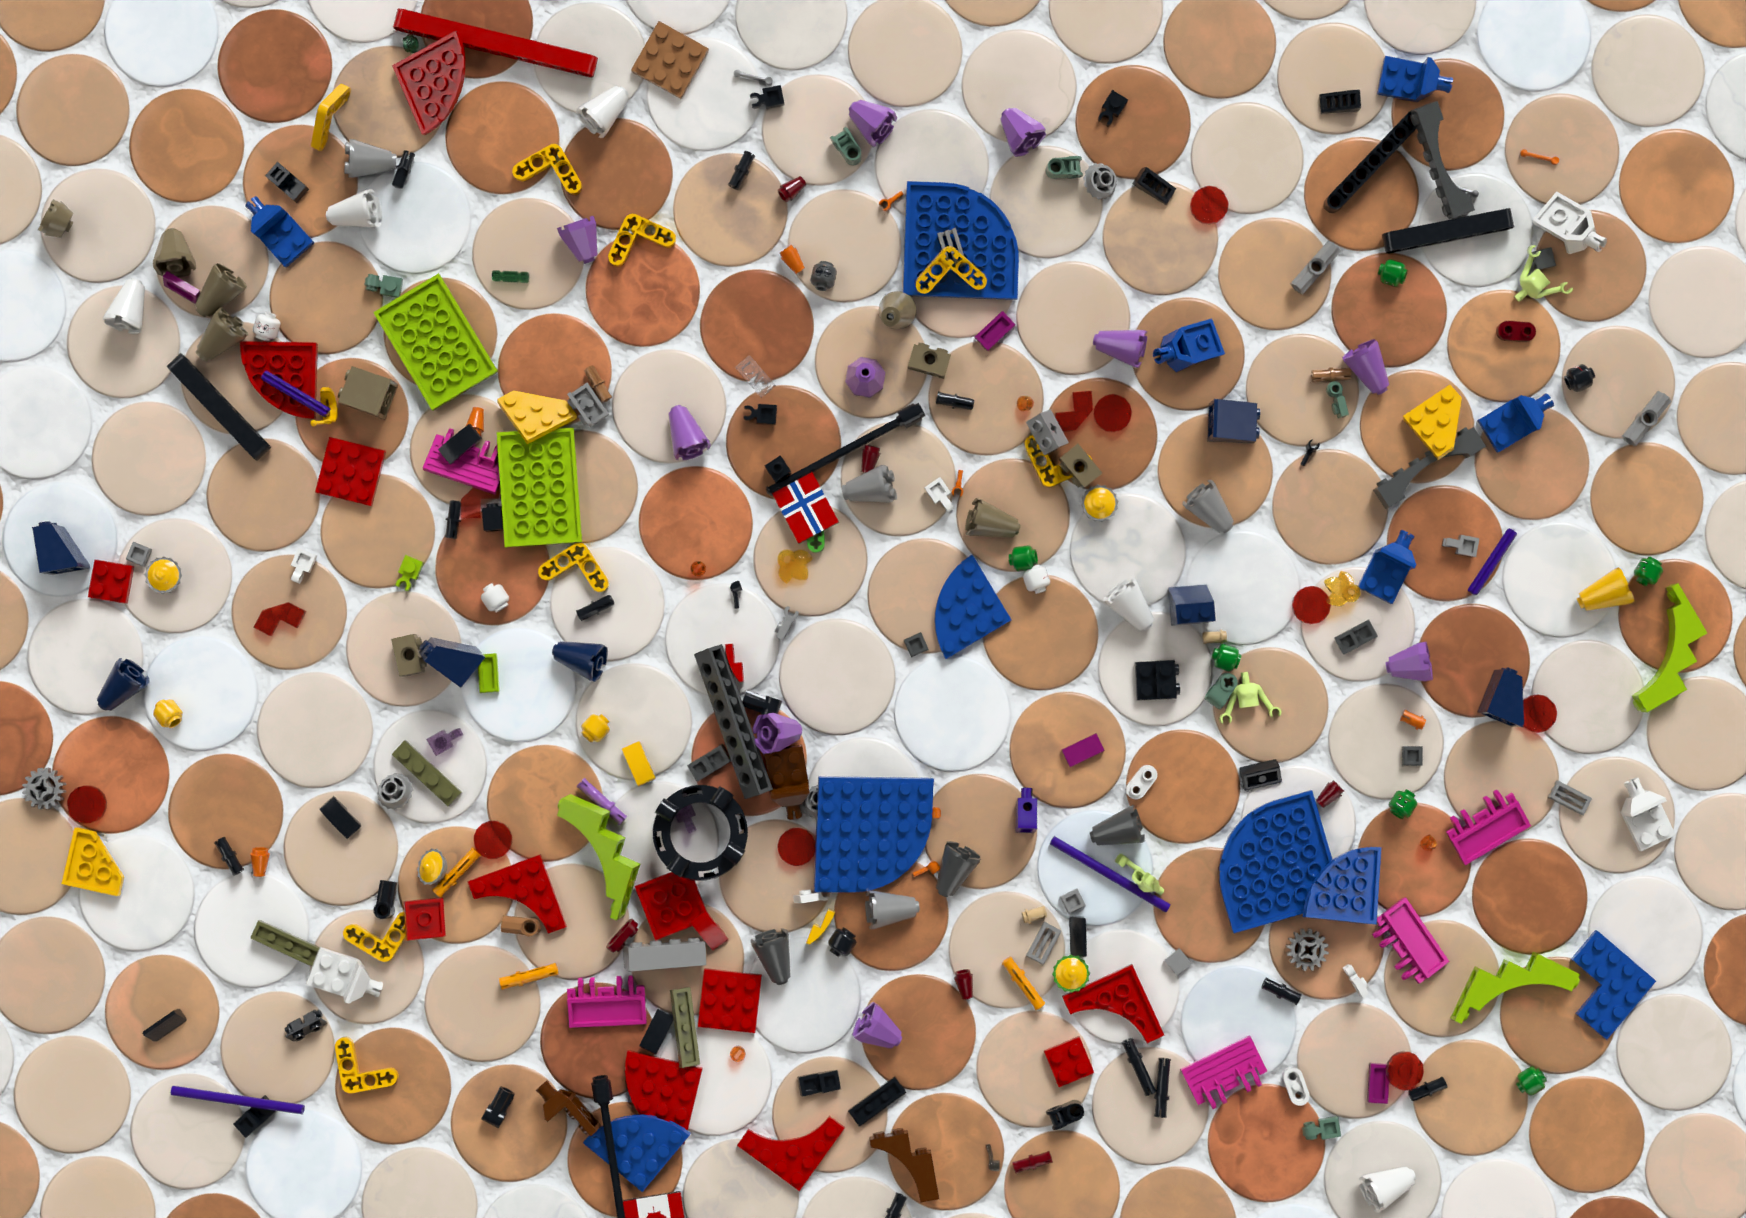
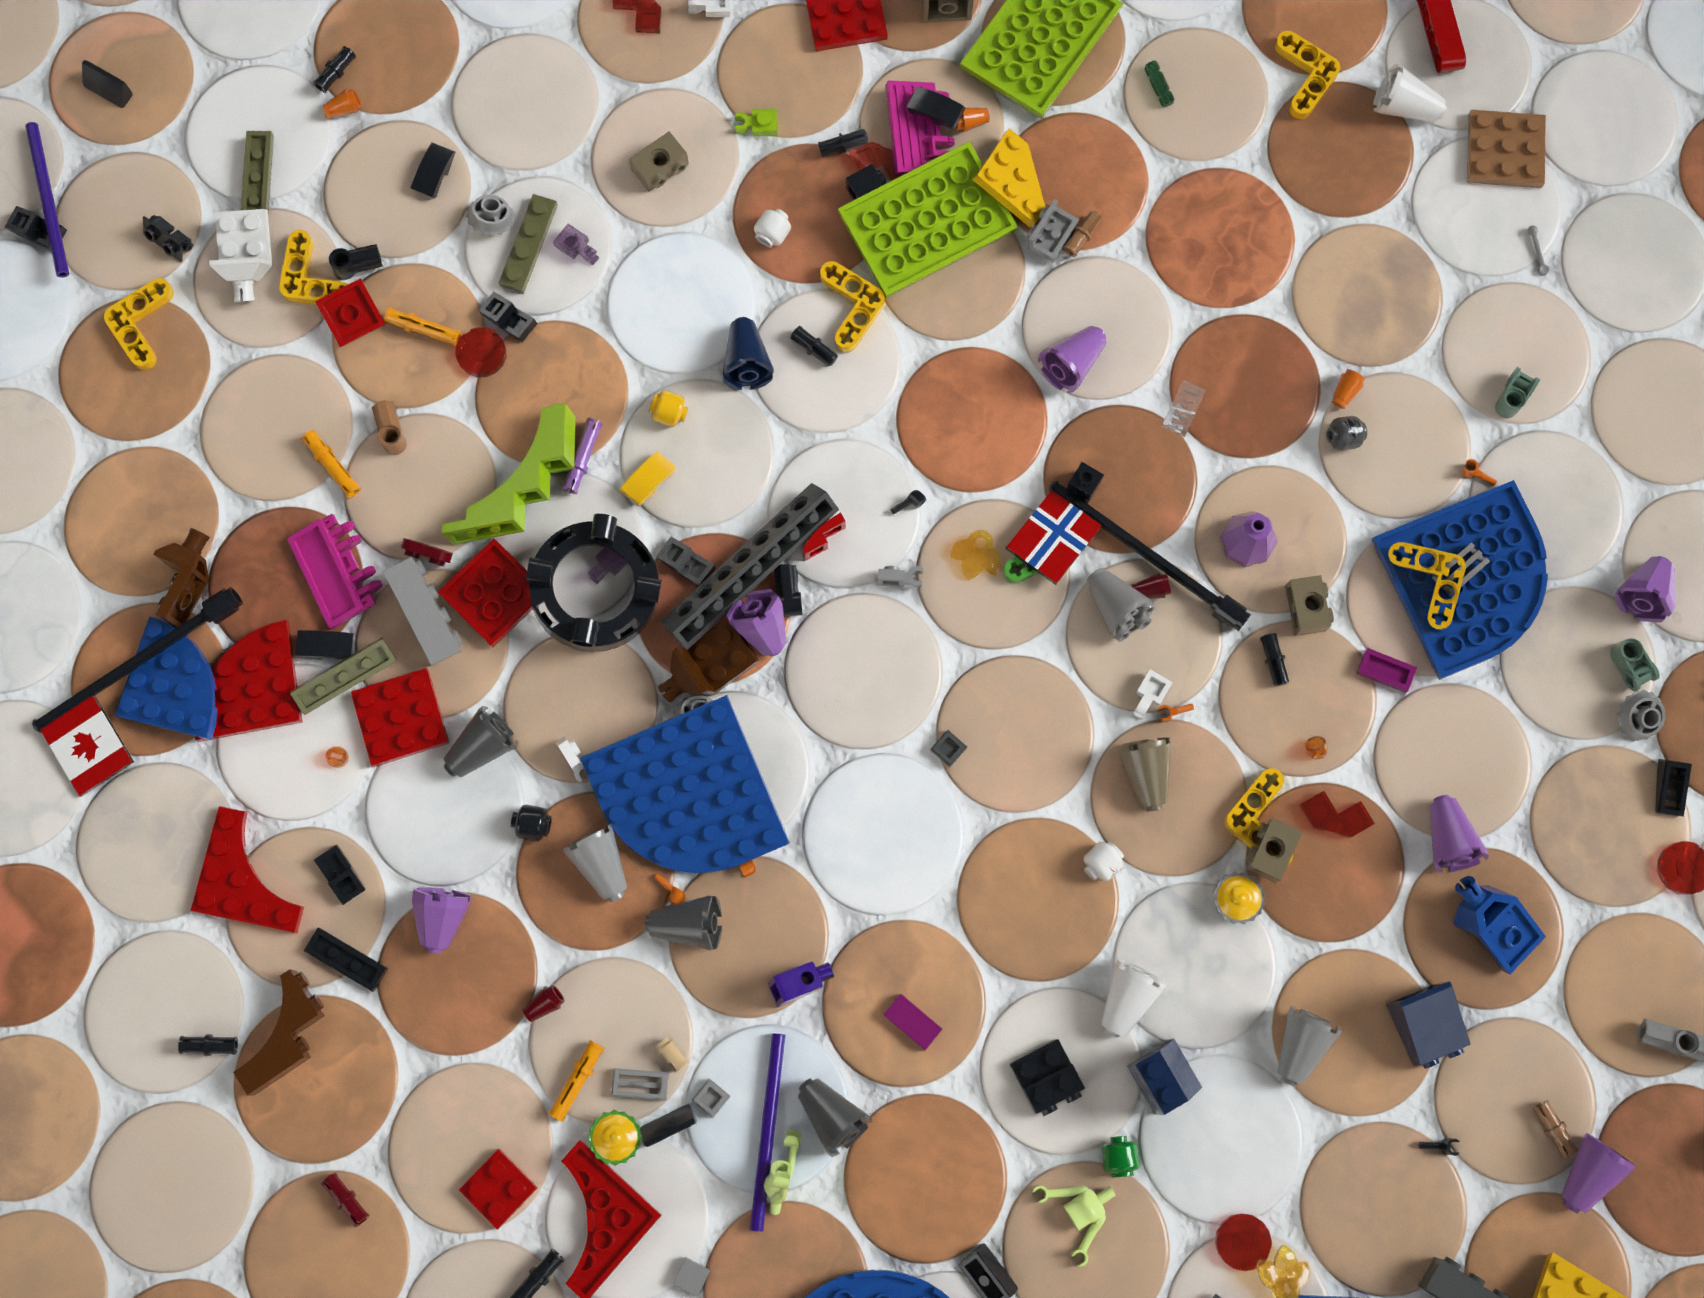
camera: 70 degrees right, 10 degrees down
(432, 867) = (416, 295): yellow piece -> none
(451, 658) = (675, 203): dark blue slope -> none
(475, 810) = (507, 317): none -> black slope
(489, 674) = (679, 261): lime tile -> none
(497, 1109) = (146, 496): black piece -> none
(525, 883) = (443, 414): red plate -> none
(581, 239) = (1246, 136): medium lavender cone -> none
(640, 231) = (1287, 201): yellow beam -> none
(701, 571) = (919, 437): clear orange hinge -> none
(709, 930) = (476, 651): red slope -> none
(741, 170) = (1421, 284): black pin -> none
(765, 414) = (1143, 438): black plate -> none
(771, 97) = (1525, 279): black plate -> none
(790, 190) = (1430, 350): dark red cone -> none
(796, 846) = (628, 712): clear red tile -> none
(817, 930) = (534, 785): yellow slope -> none
(872, 120) = (1564, 408): medium lavender cone -> none
(897, 310) = (1350, 538): dark tan cone -> none
(967, 608) = (1023, 791): blue plate -> none
(994, 1165) = (321, 1149): clear smoke hand -> none
(1023, 558) = (1122, 832): green head -> none
(1047, 432) = (1295, 789): light grey brick -> none
(1064, 1115) = (422, 1211): black piece -> none
(1112, 413) = (1359, 864): clear red tile -> none
(1140, 781) = (906, 1118): white plate -> none
(1214, 637) = (1139, 1129): tan pin -> none
(1218, 693) = (1069, 1170): sand green piece -> none
(1339, 406) = (1522, 1158): sand green plate -> none

